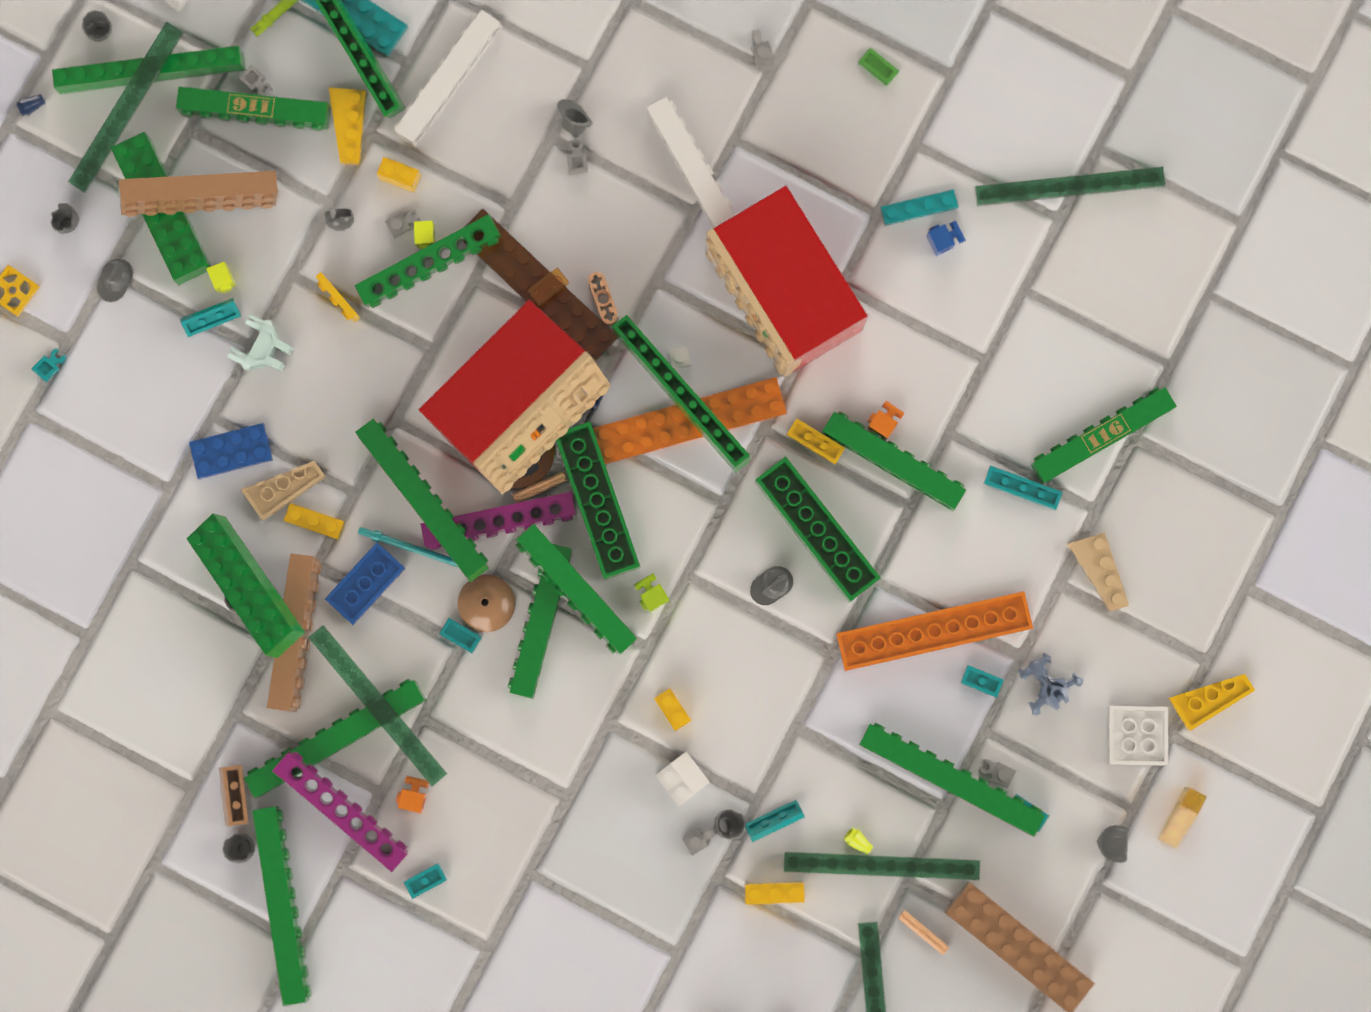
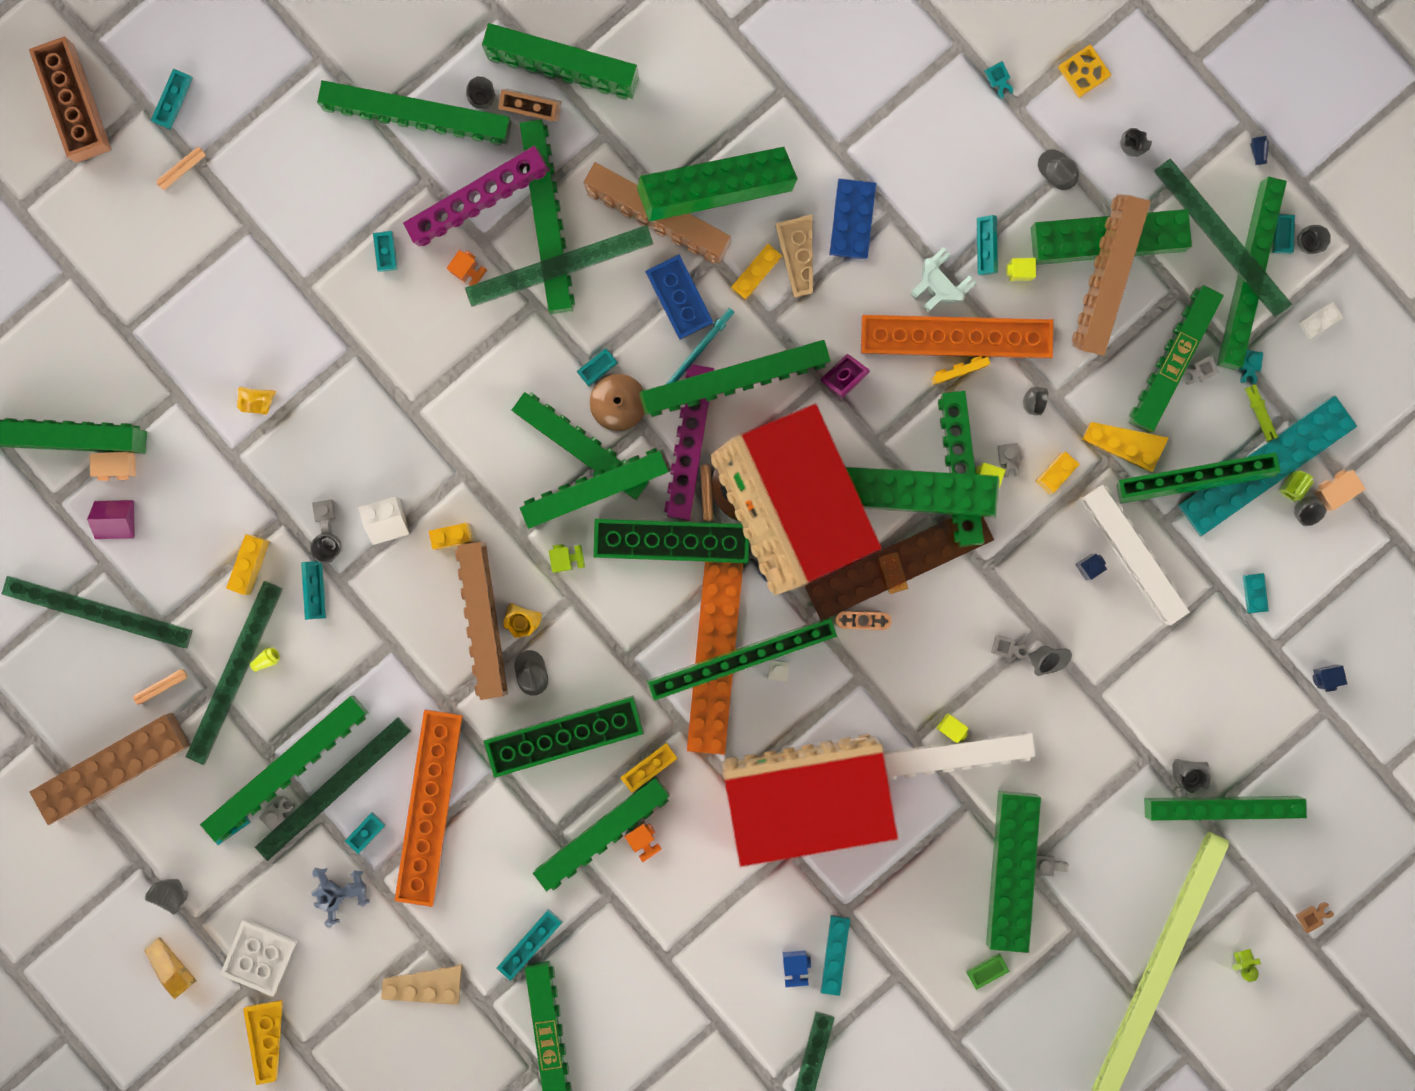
camera: 110 degrees right, 5 degrees up
(102, 53) = (1284, 234): none -> teal tile
(181, 781) = (560, 61): none -> green brick
(232, 38) = (1251, 364): none -> teal plate
(306, 313) = (957, 336): none -> orange plate
(382, 401) = (844, 376): none -> magenta slope
(461, 282) = (926, 491): none -> green brick
(473, 112) = (1091, 566): none -> dark blue brick
(615, 949) = (254, 400): none -> yellow hair
(670, 180) = (953, 728): none -> neon yellow brick
(726, 613) = (521, 621): none -> yellow hair
(739, 647) = (482, 620): none -> medium nougat brick
(778, 77) = (1013, 871): none -> green brick
(954, 728) = (333, 789): none -> clear green plate

